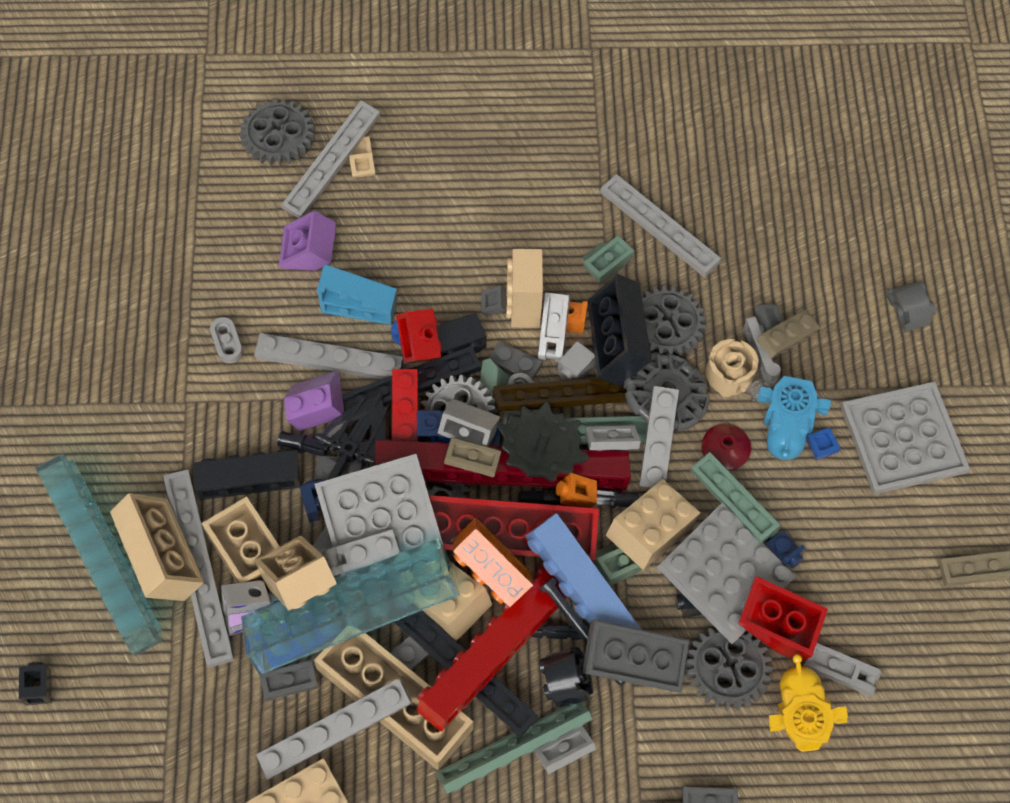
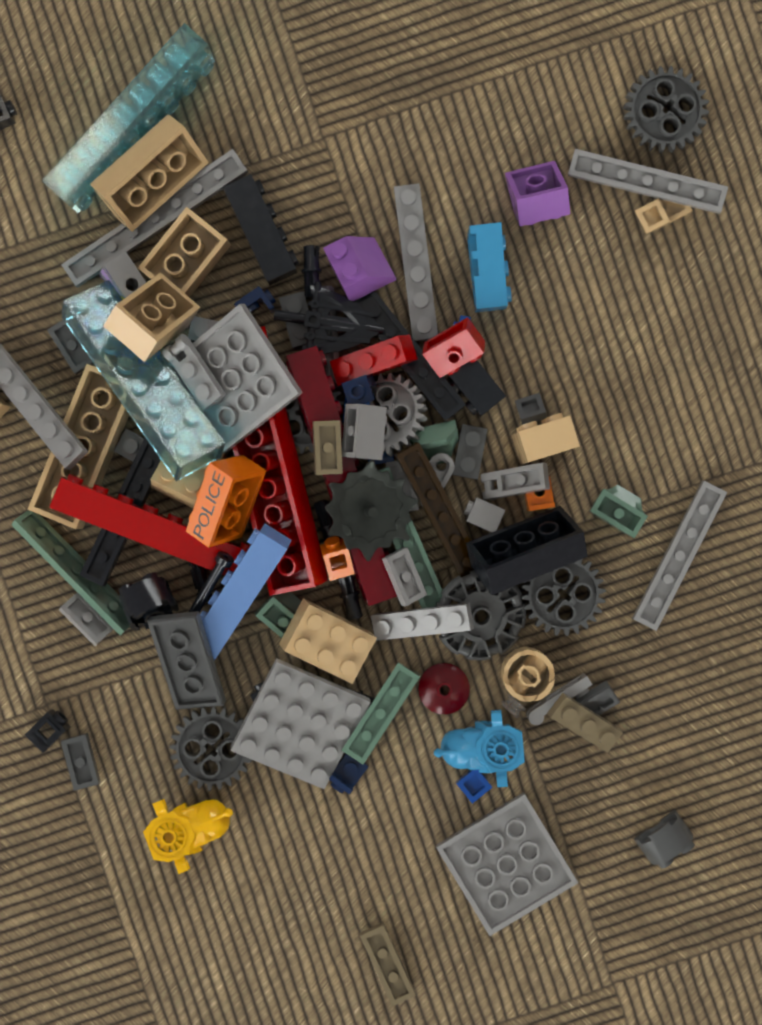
camera: 75 degrees right, 25 degrees up
(227, 341) = (397, 150): light grey plate -> none
(782, 619) = (266, 789): red slope -> none
(843, 669) = (244, 852): light grey plate -> none

